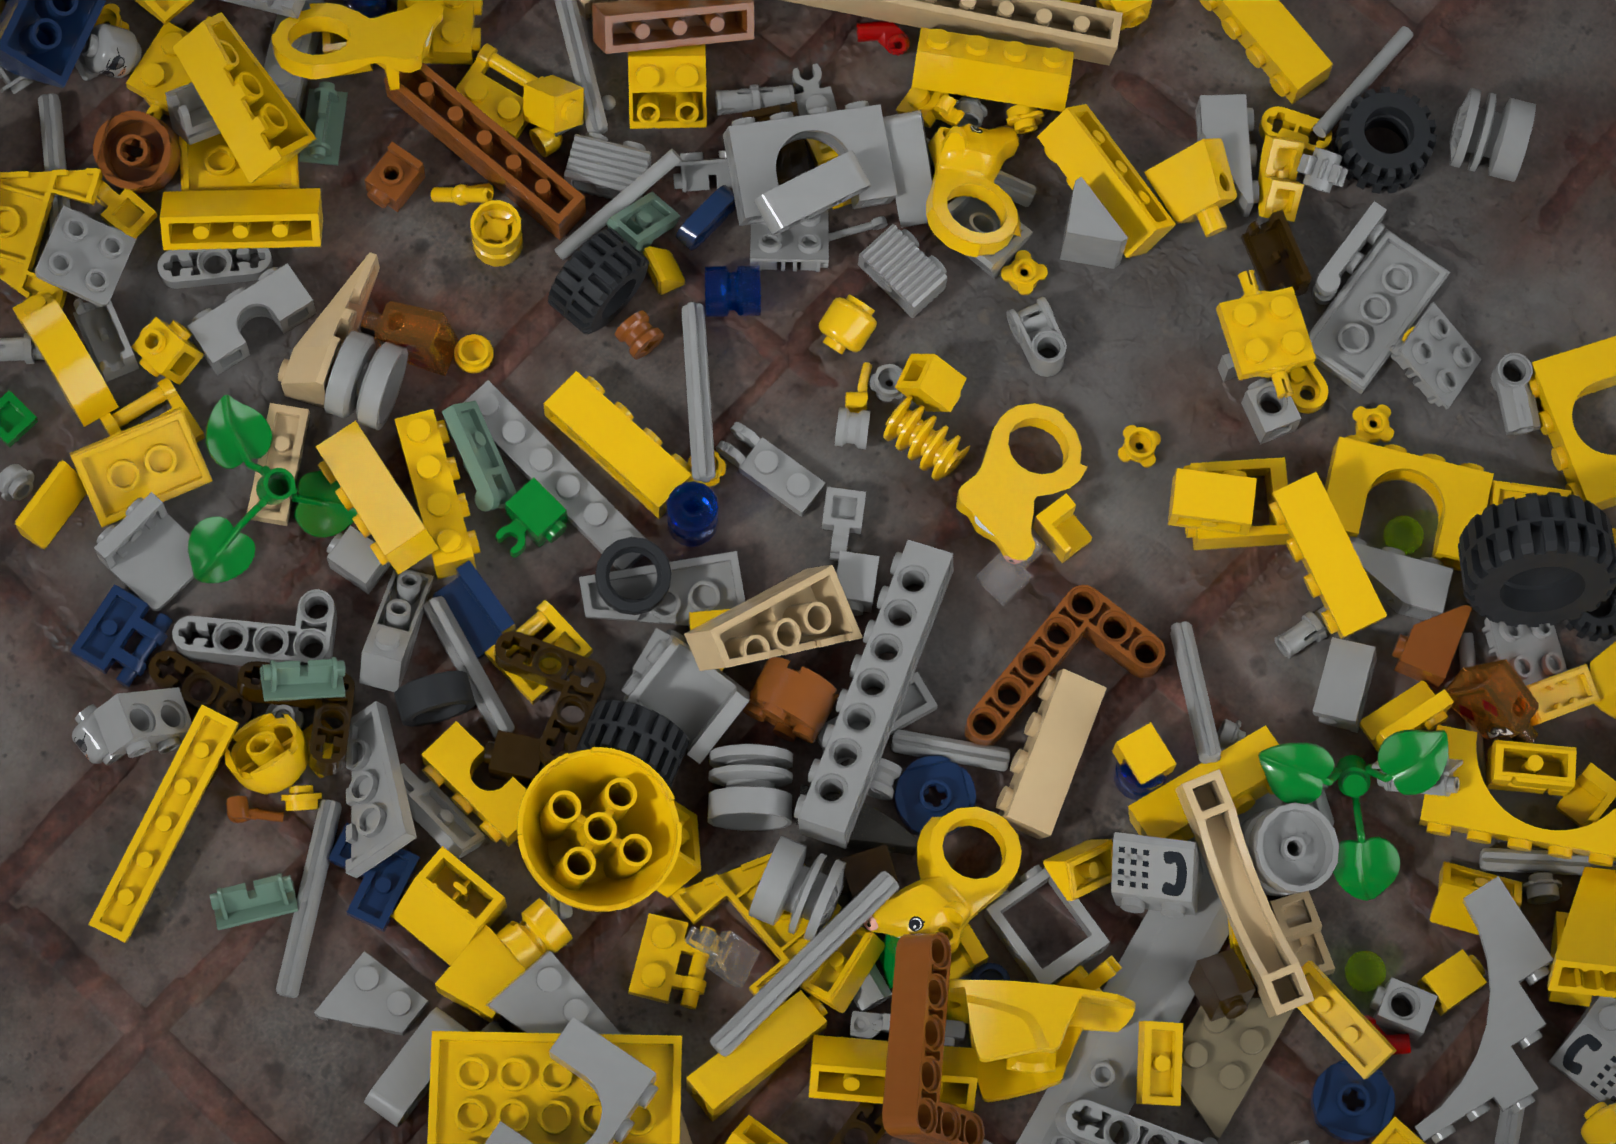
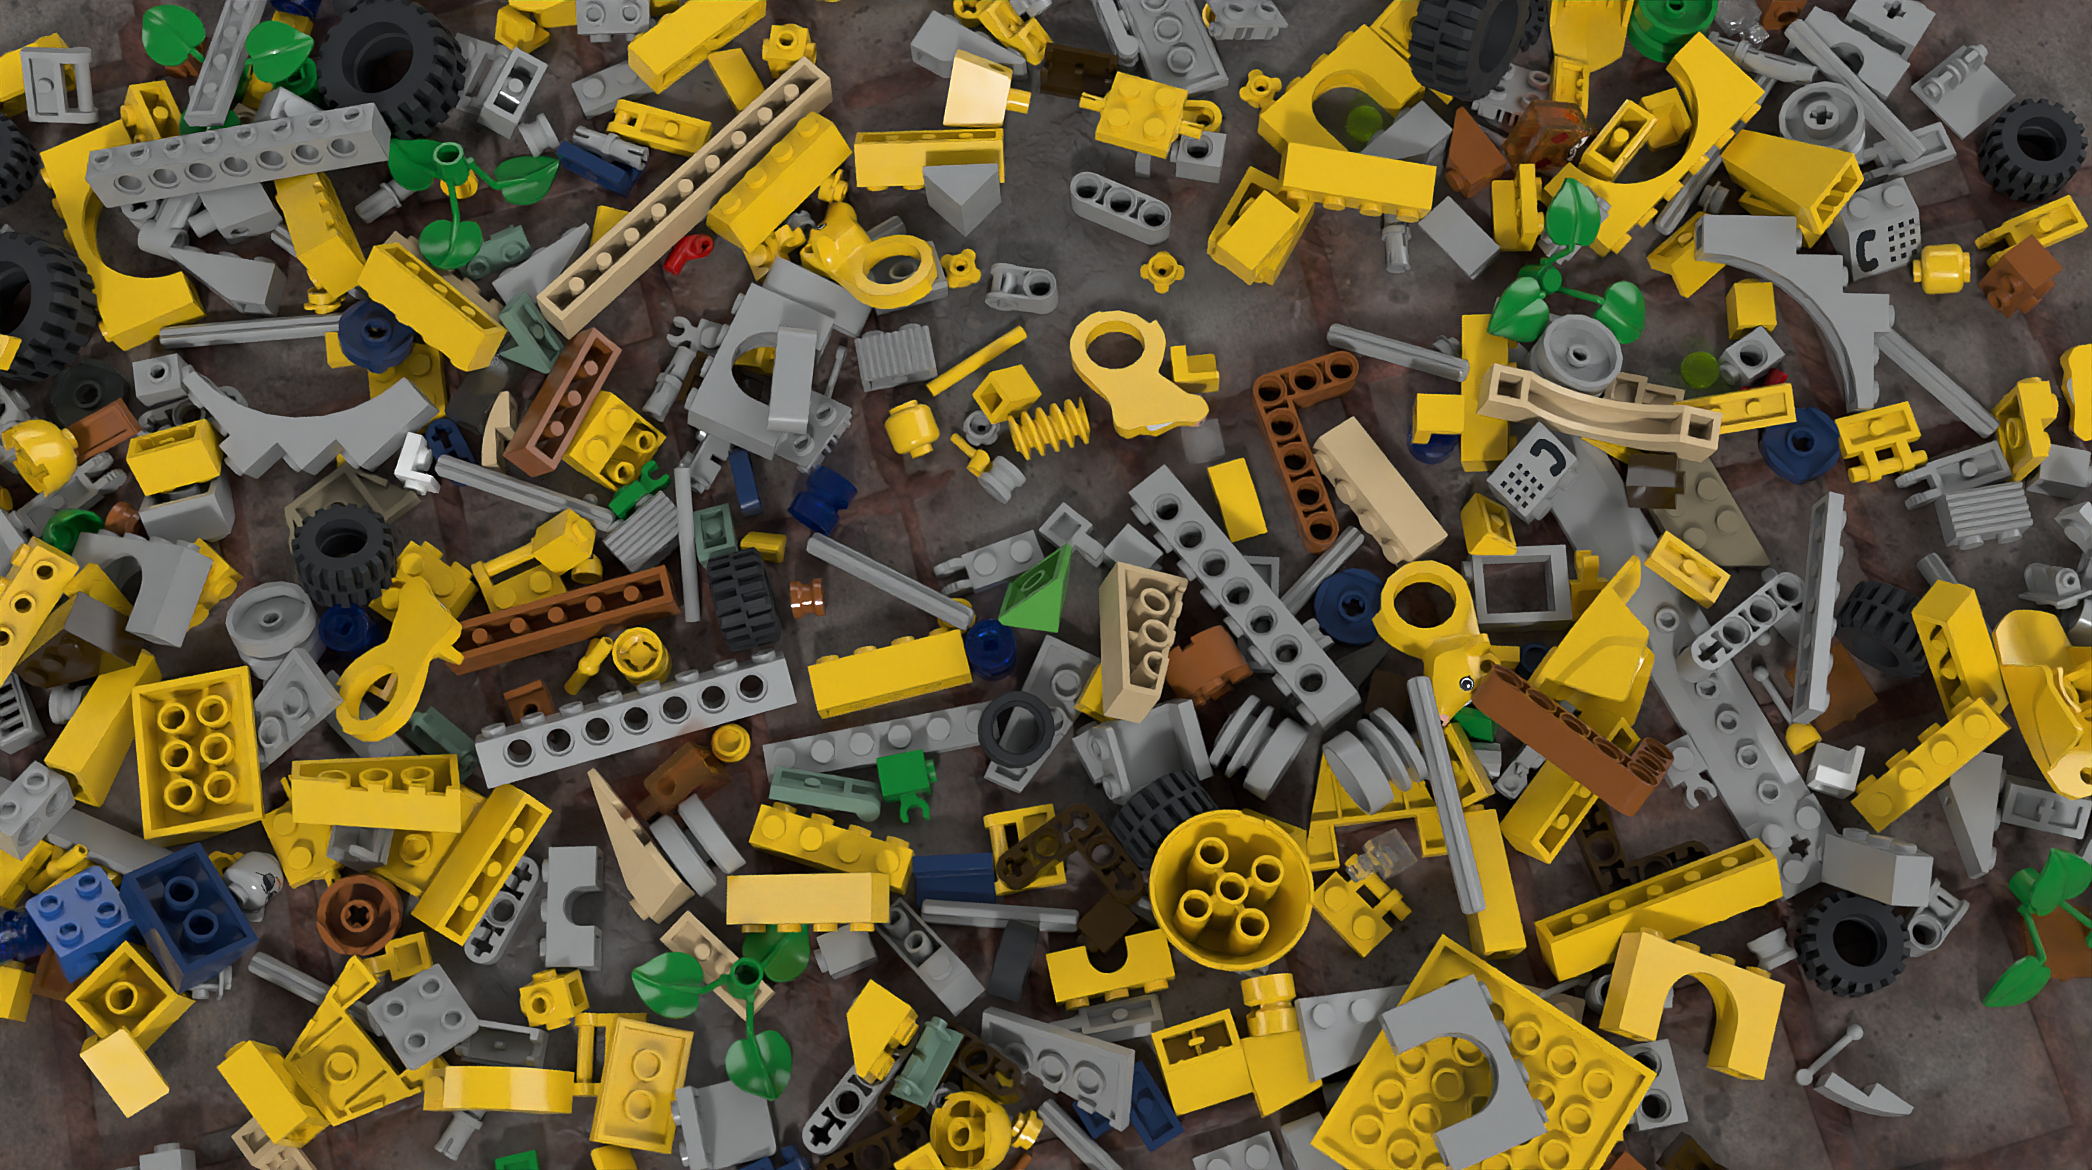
camera: 45 degrees left, 0 degrees up
(299, 618) = (876, 1028): none -> yellow slope
(330, 182) = (503, 766): none -> light grey brick
(631, 130) = (628, 496): none -> green plate
(766, 523) = (1039, 594): none -> bright green slope
(948, 340) = (976, 361): none -> yellow bar
(968, 638) = (1236, 499): none -> yellow slope
(1177, 355) = (1109, 194): none -> light grey beam

